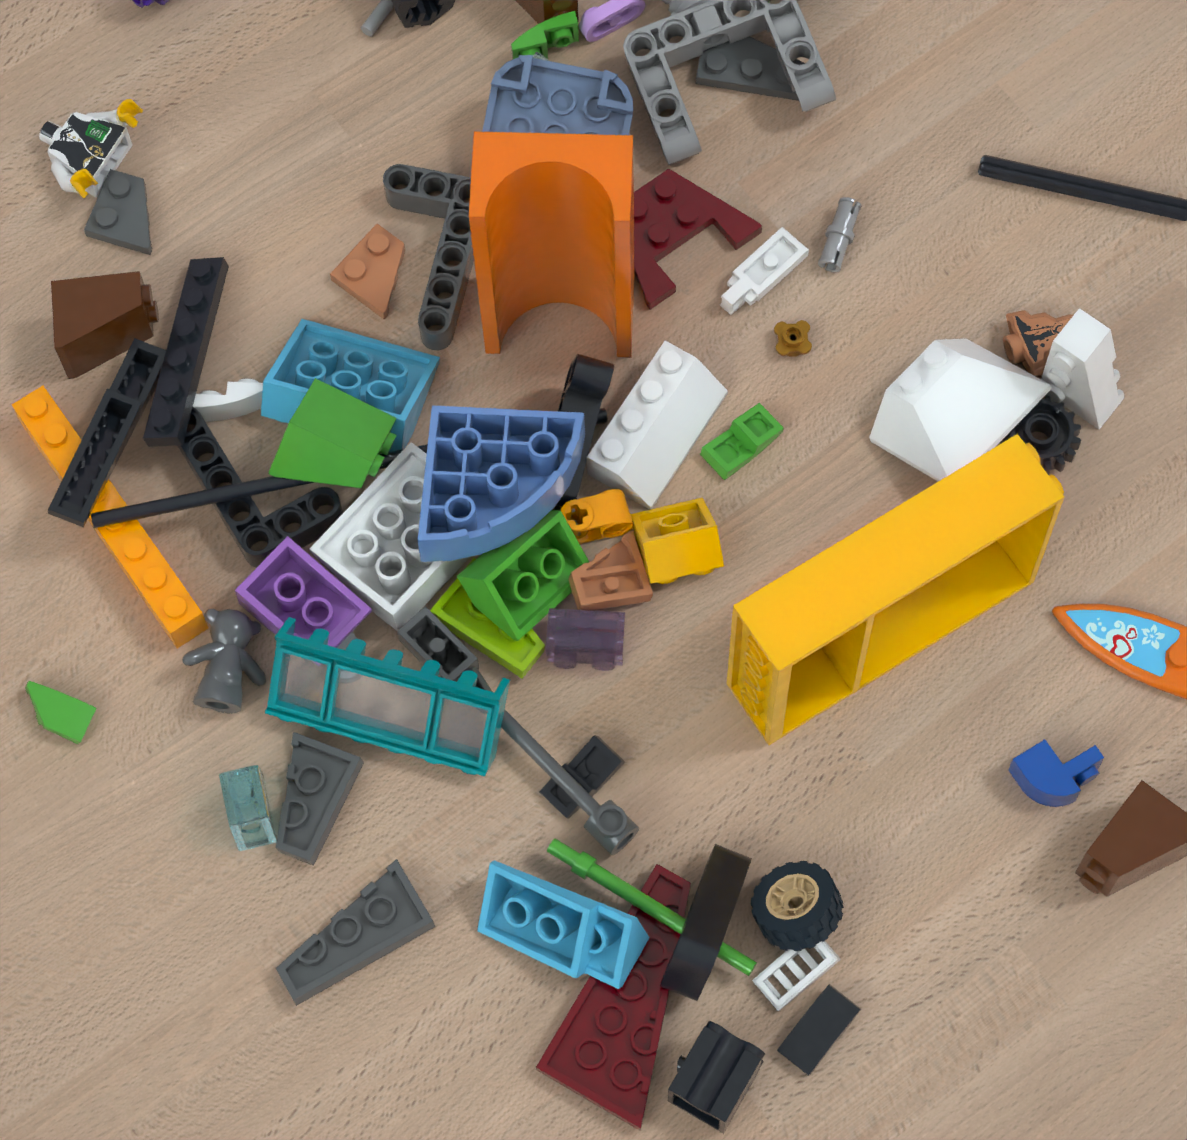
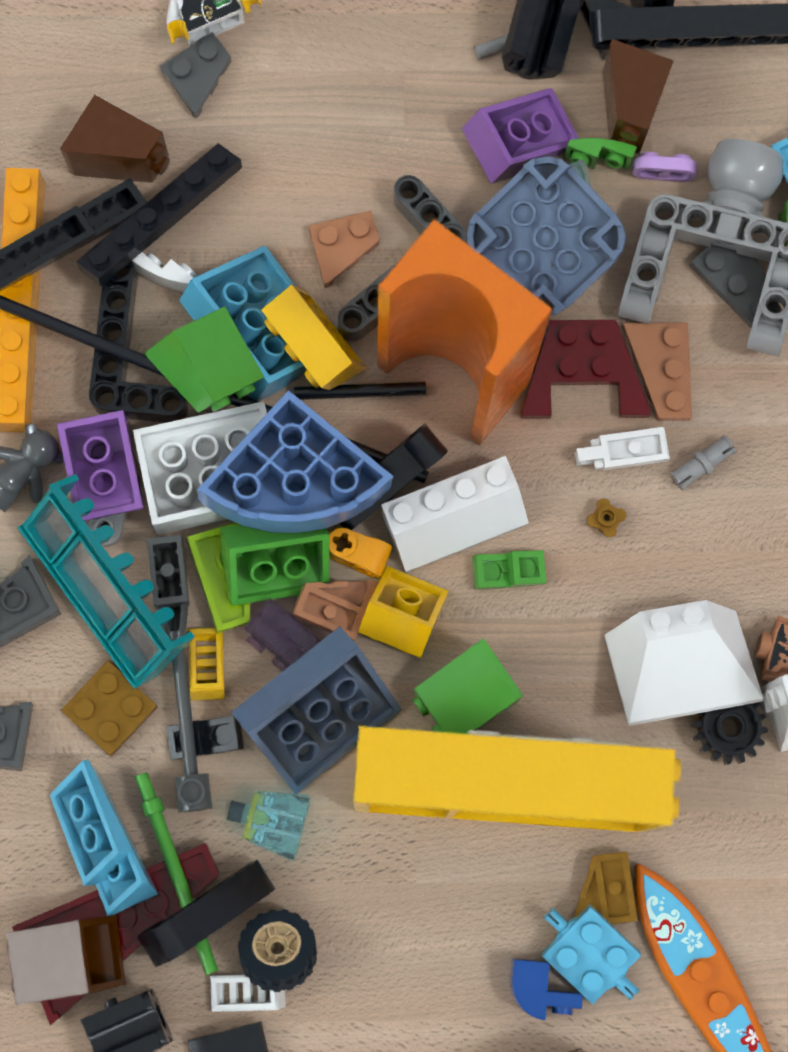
camera: 30 degrees right, 10 degrees up
(412, 359) = (312, 338): none -> yellow slope
(458, 72) = (518, 131): none -> medium lavender slope
(473, 814) = (109, 708): none -> pearl gold plate
(498, 374) = (361, 390): none -> black bar
(548, 730) = (212, 684): none -> yellow slope
(609, 1052) = (66, 959): none -> slope
(666, 673) = (315, 709): none -> sand blue slope
(703, 801) = (273, 820): none -> clear light blue torso
(743, 179) = (664, 364): none -> nougat wing
(786, 541) = (467, 691): none -> bright green slope
(1046, 650) = (609, 888): none -> pearl gold wing
(1074, 709) = (591, 954): none -> medium azure plate

